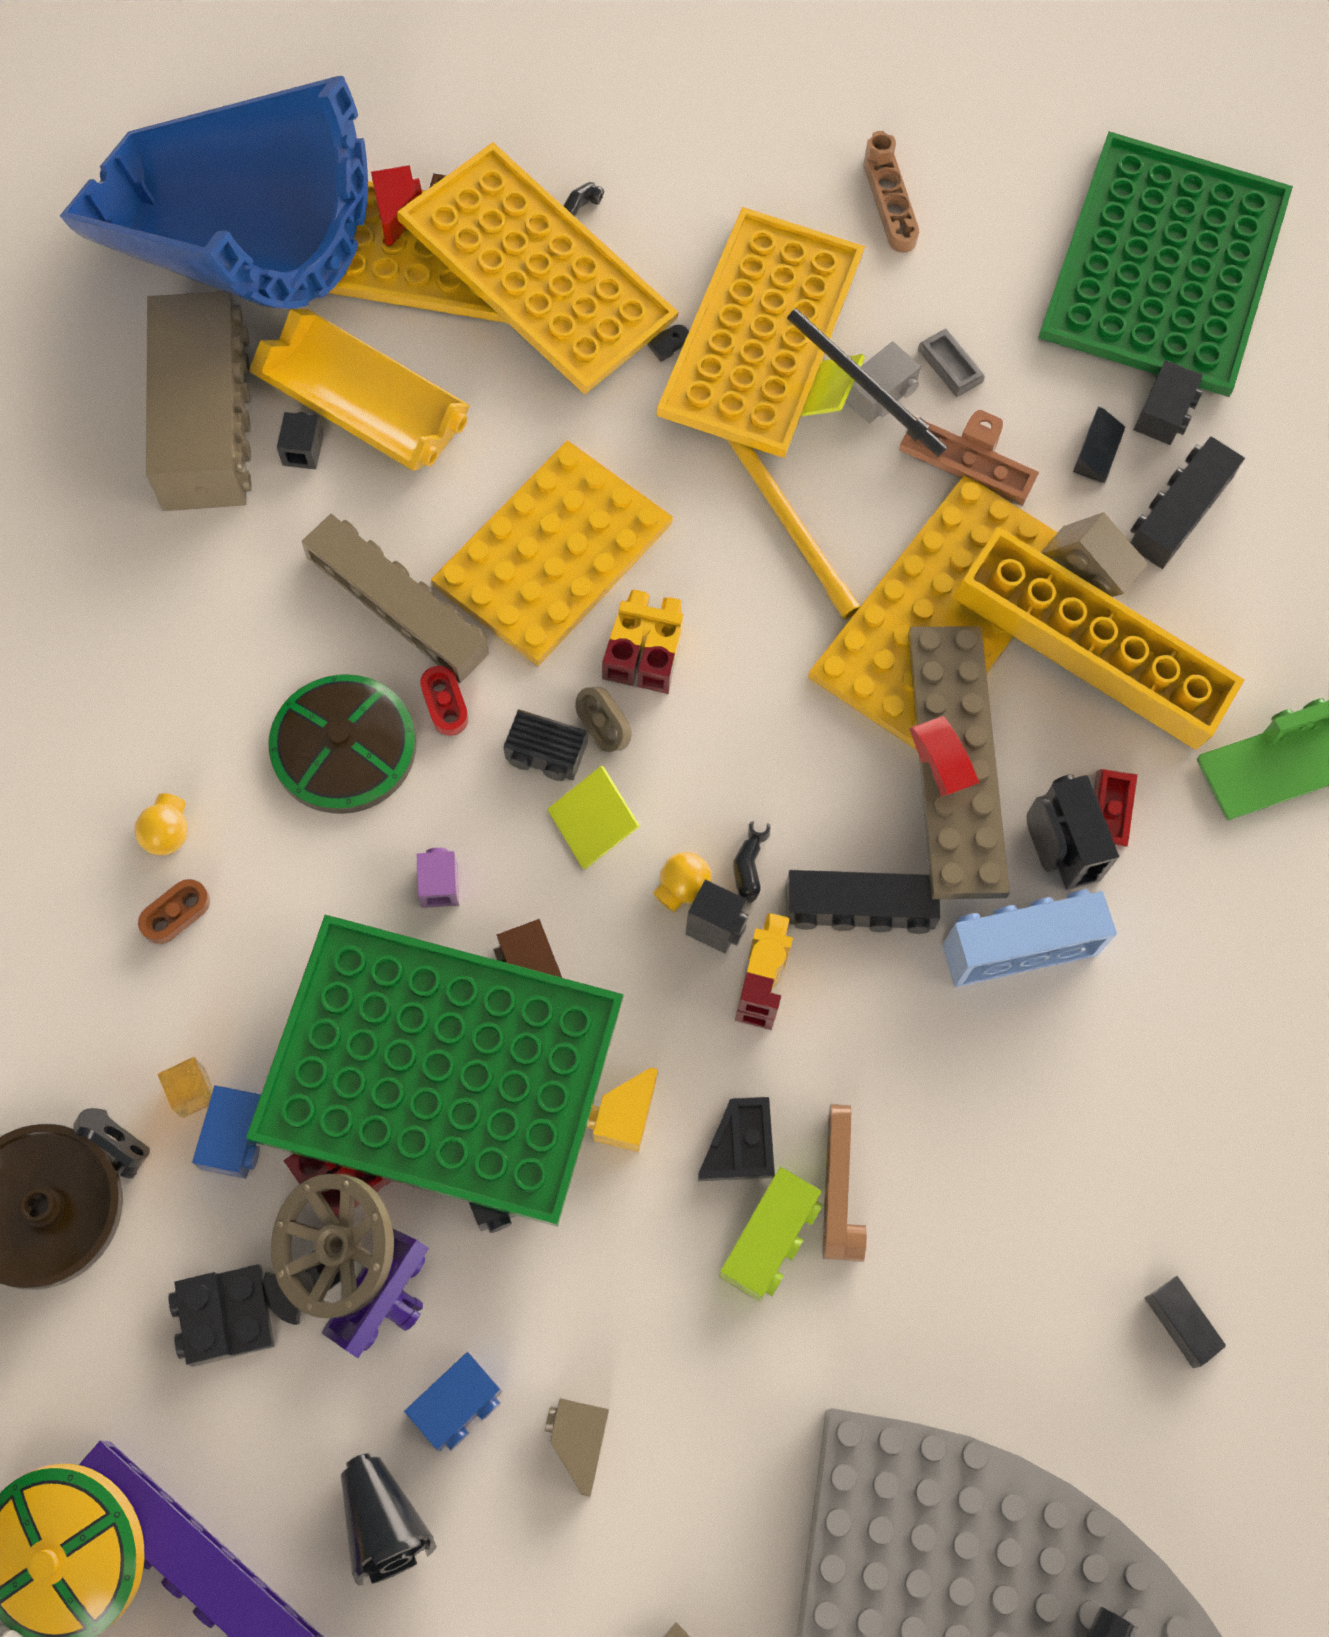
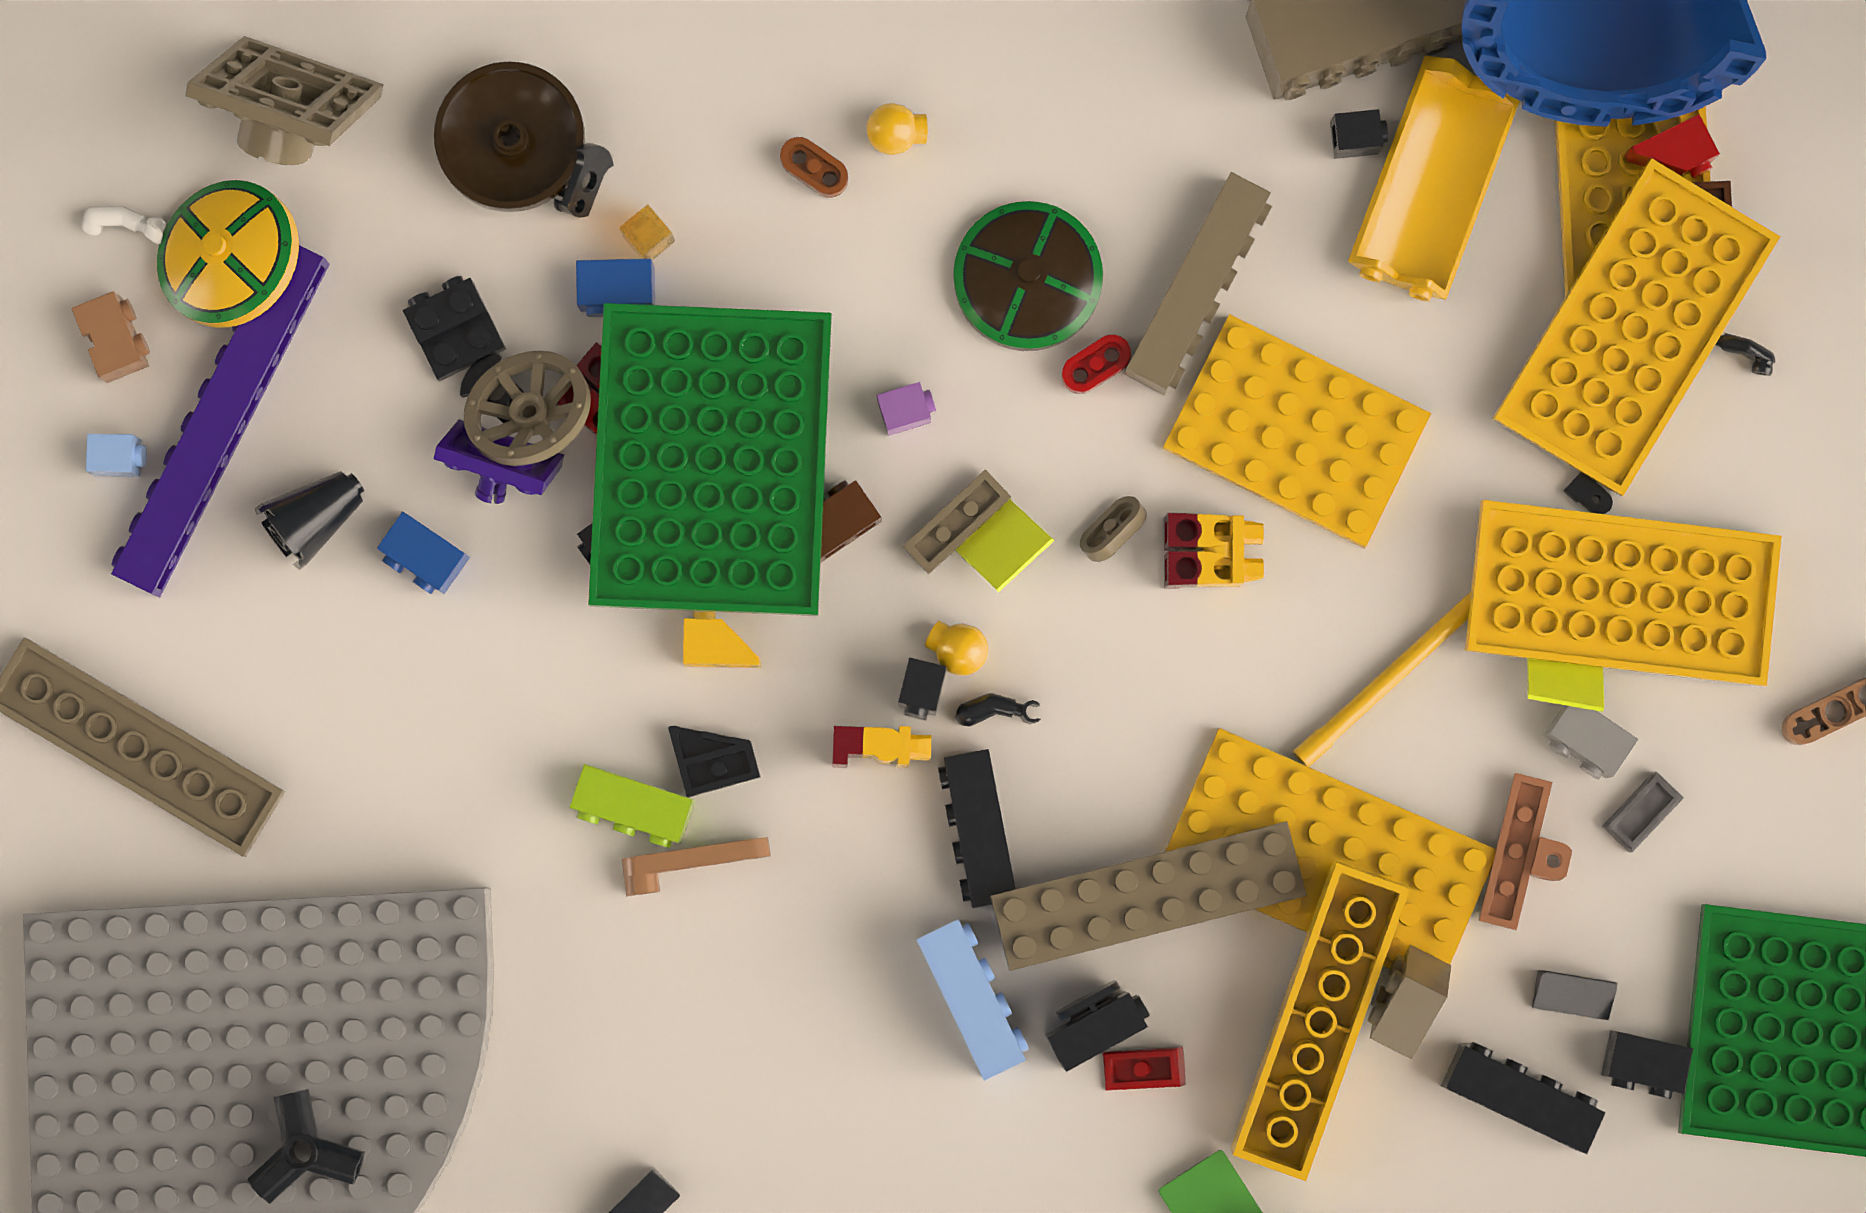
camera: 80 degrees right, 15 degrees up
(545, 745) = (1070, 477): black brick -> none
(561, 856) = (957, 522): none -> dark tan plate
(578, 1439) = (414, 670): dark tan slope -> none
(916, 427) = (1531, 785): black bar -> none
(946, 755) = (1135, 878): red slope -> none

